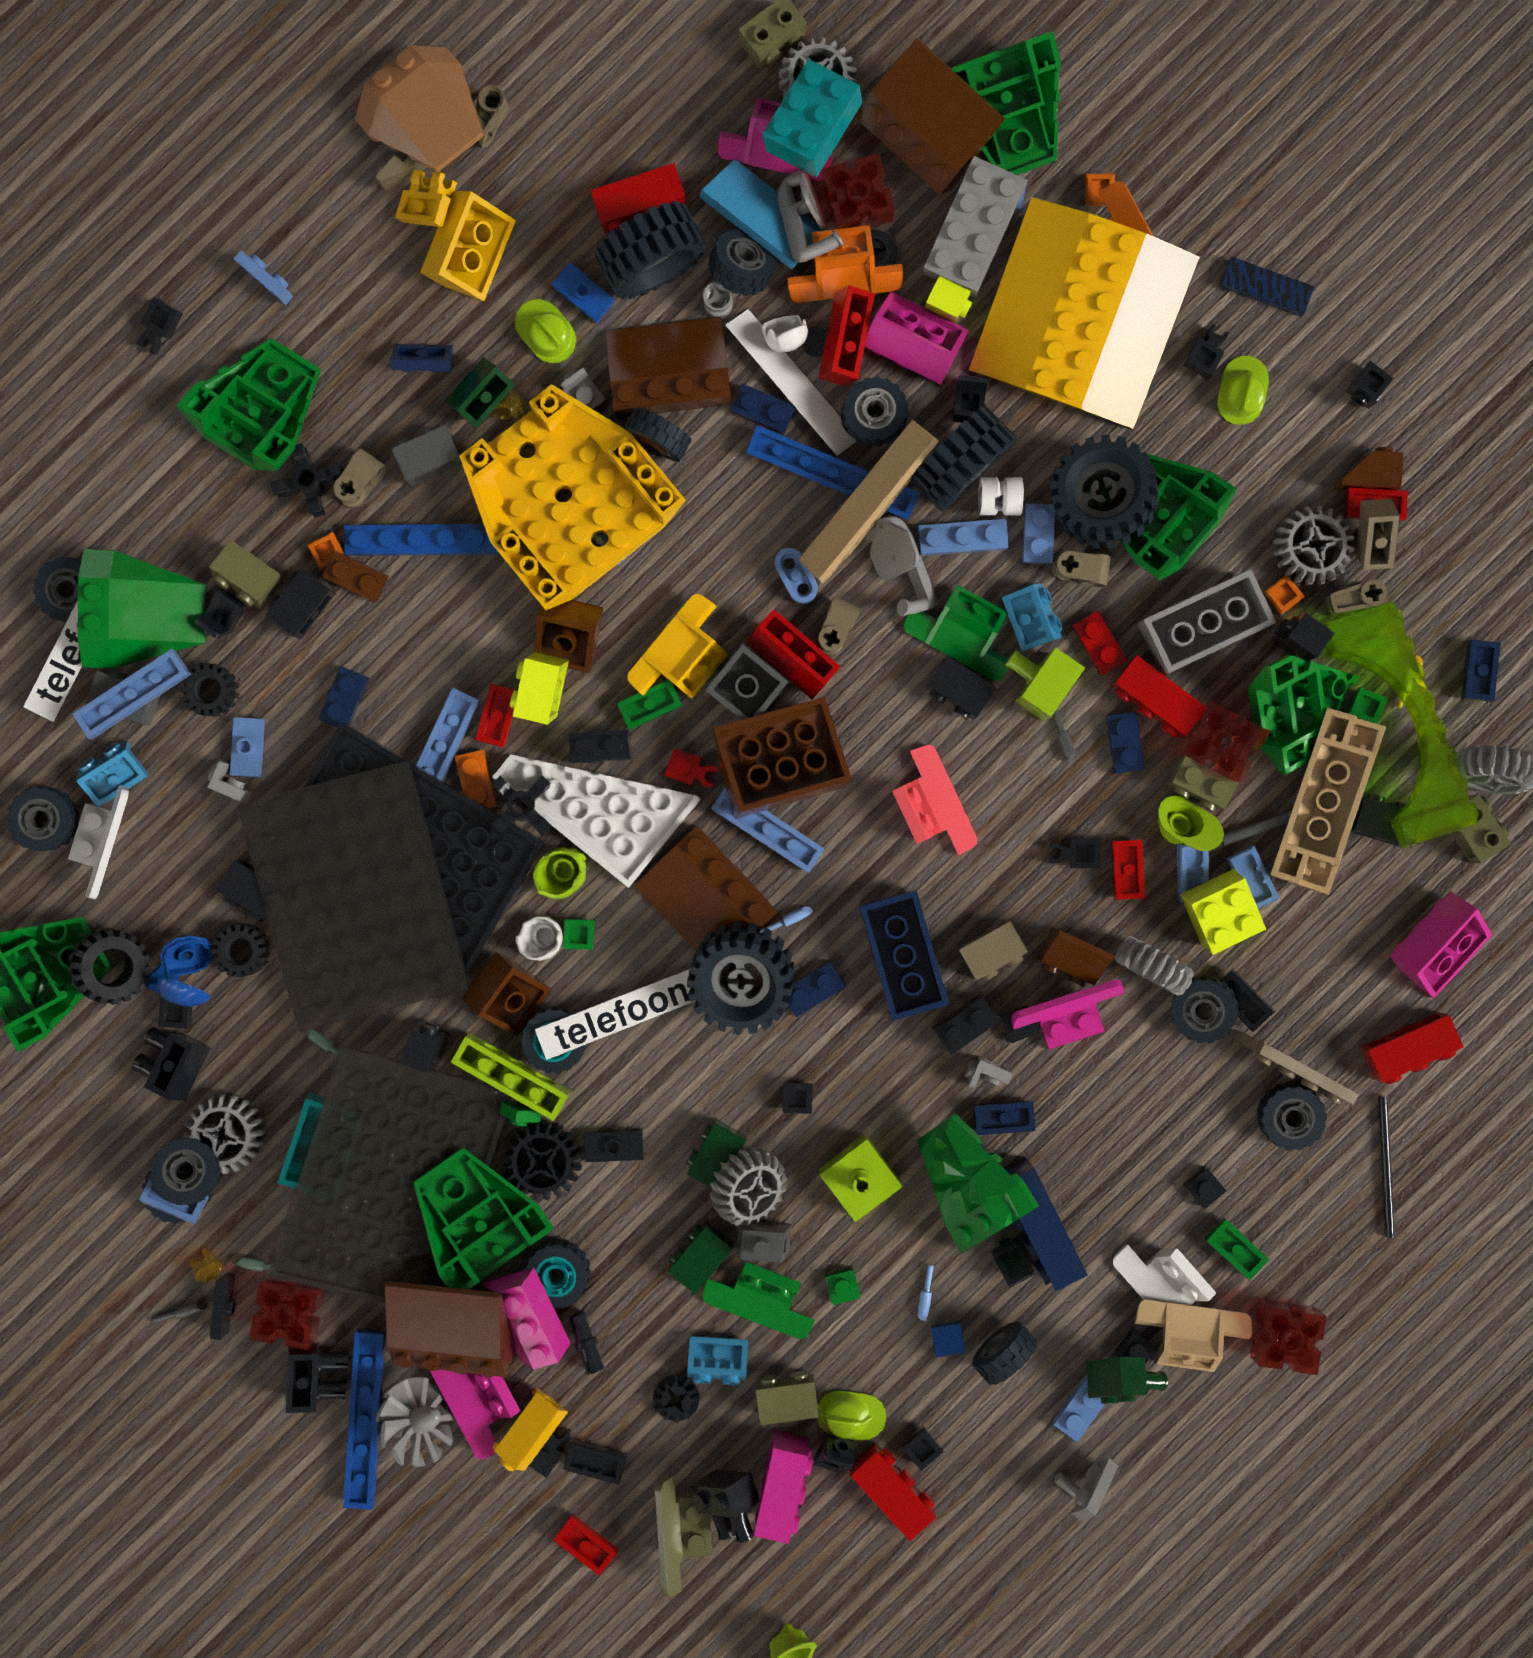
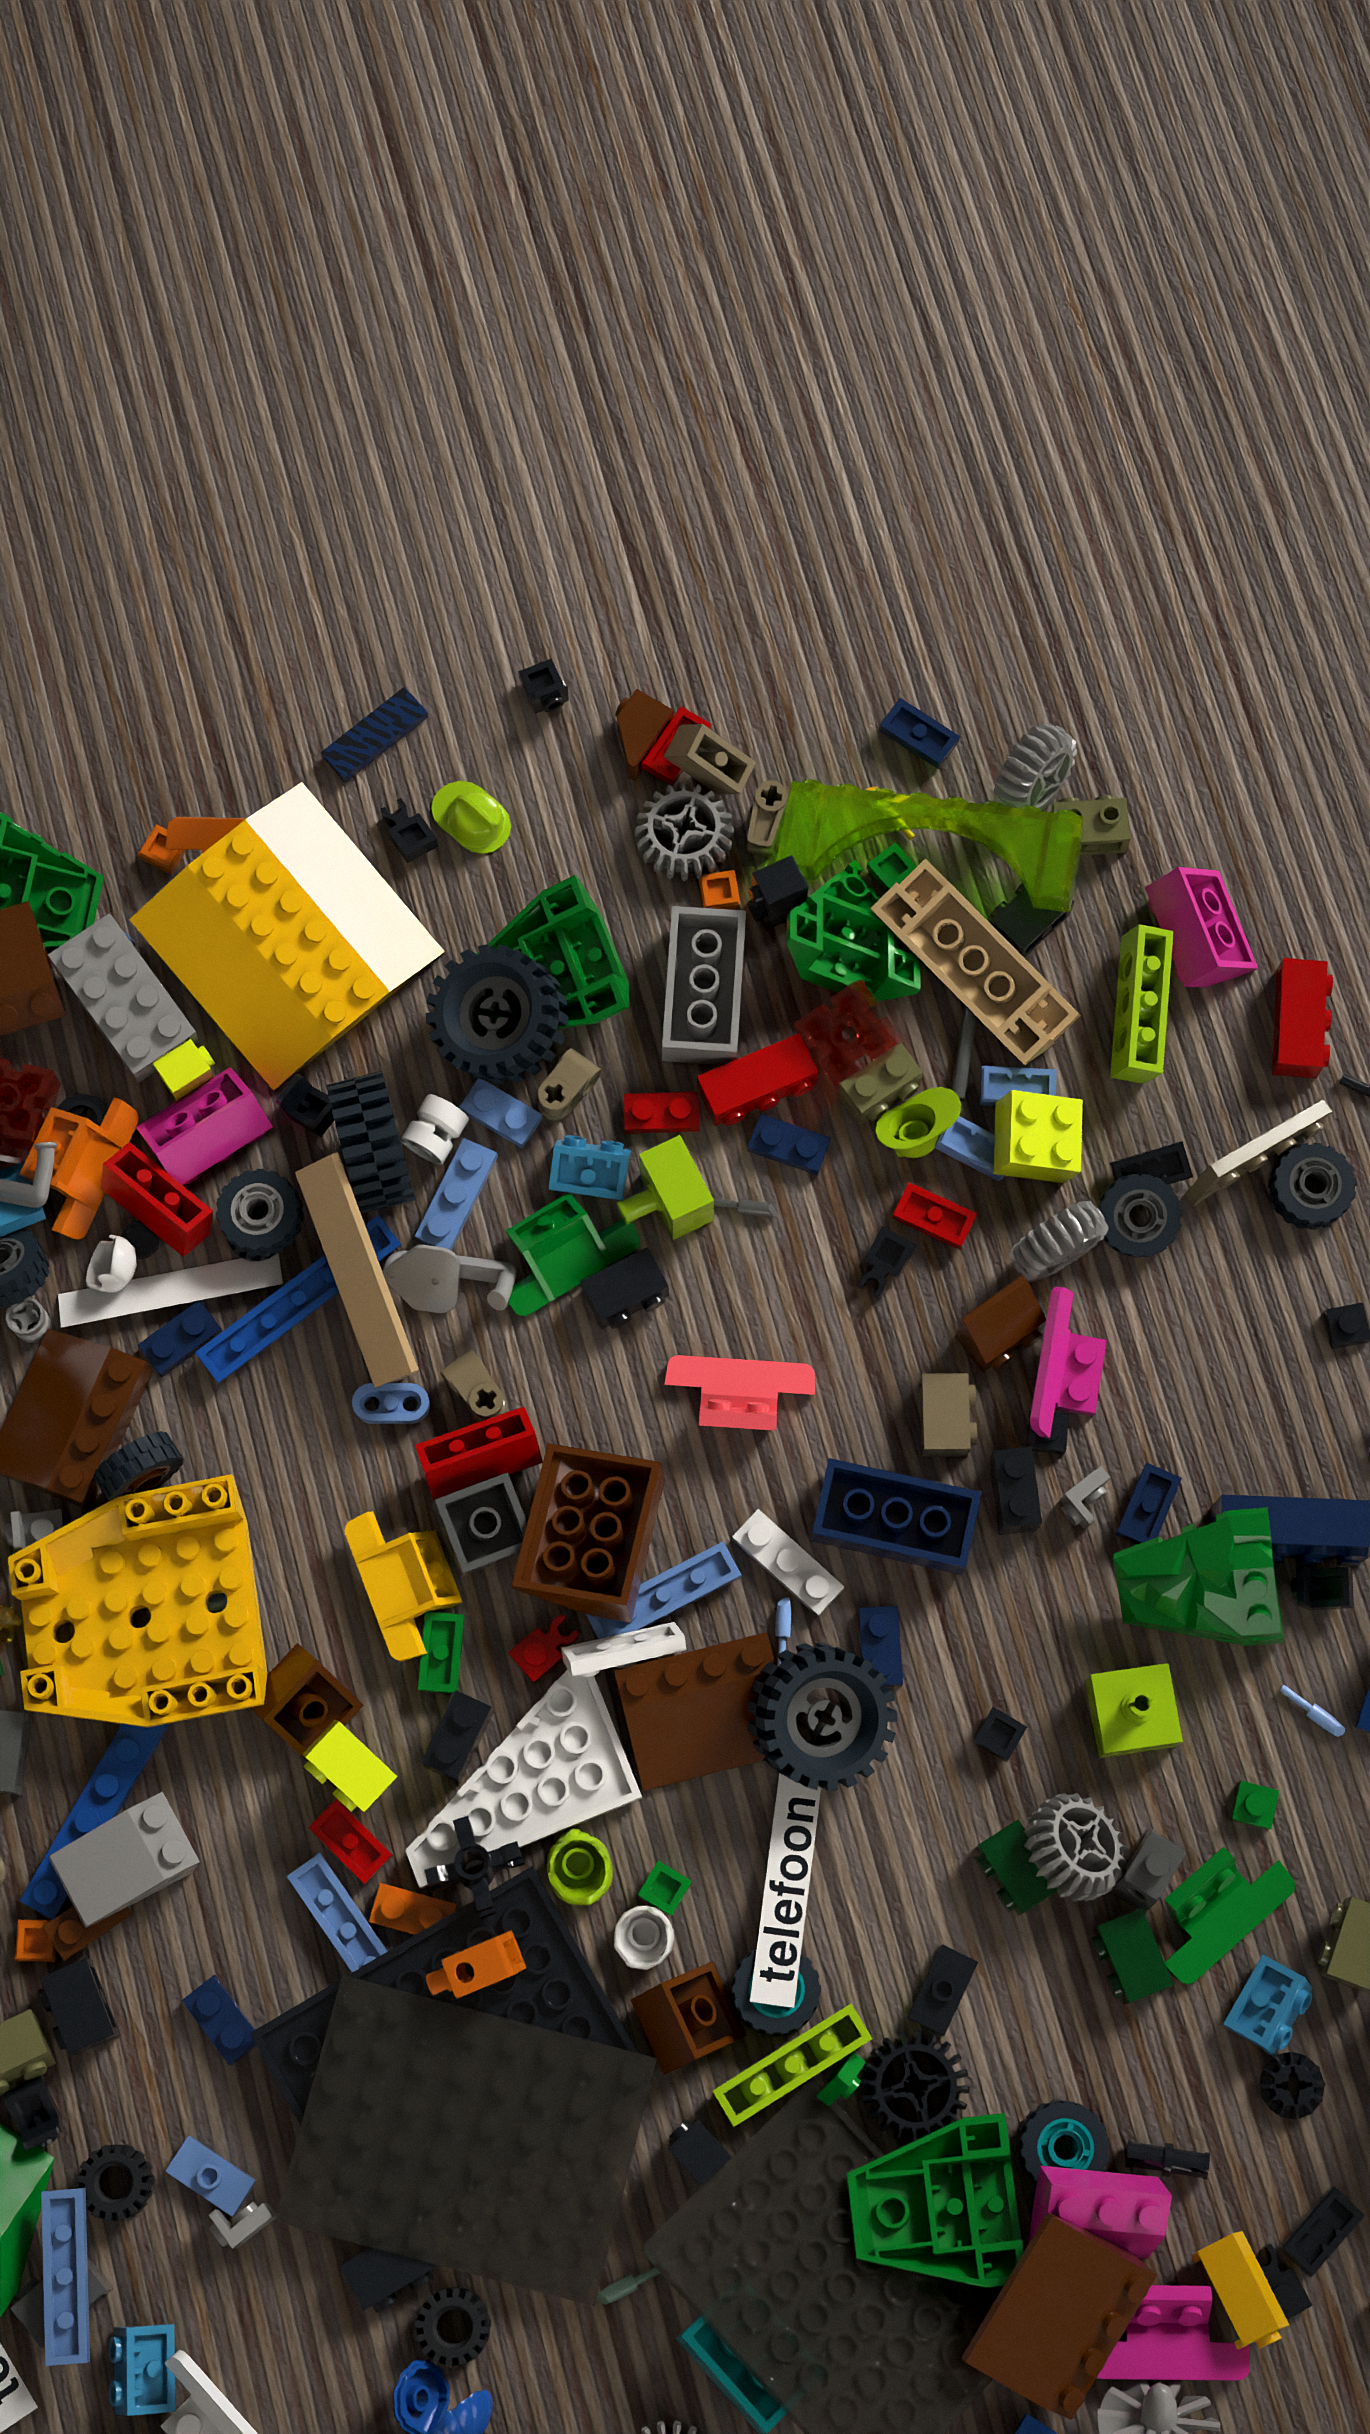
camera: 60 degrees left, 15 degrees down
(402, 577) = (124, 1860): none -> light grey slope
(458, 846) = (491, 1963): none -> orange torso
(715, 823) = (623, 1649): none -> white plate
(835, 898) = (788, 1562): none -> white plate
(1360, 933) = (1141, 1004): none -> lime brick

